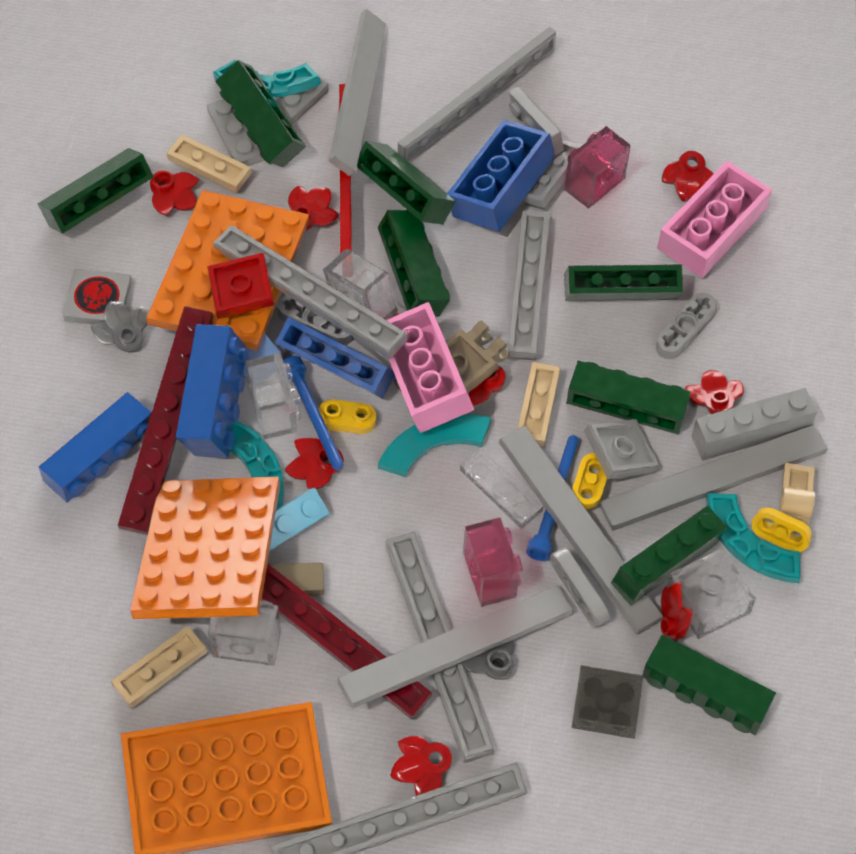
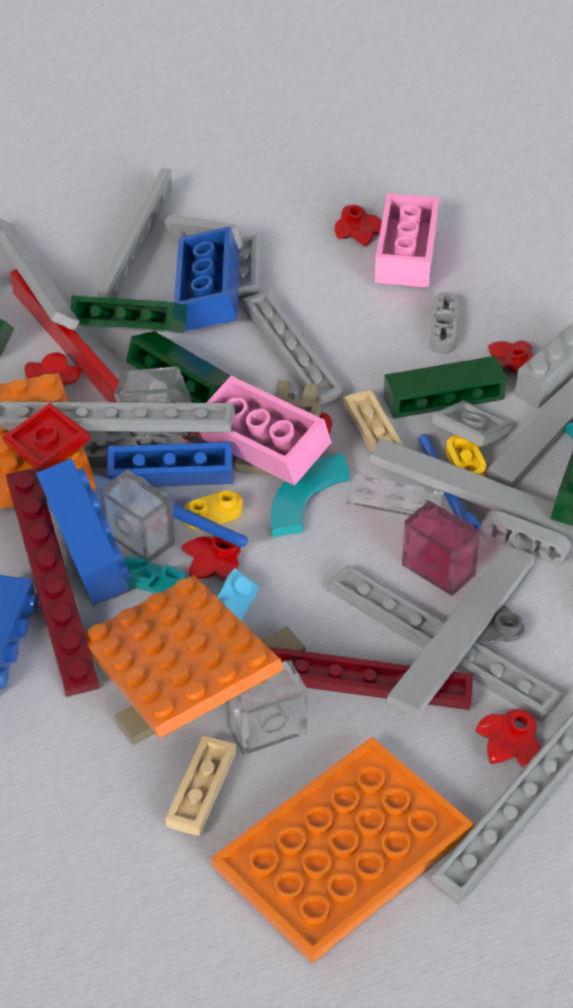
camera: 30 degrees left, 15 degrees down
(597, 166) = (282, 241): clear pink brick -> none
(623, 282) = (371, 309): dark green brick -> none

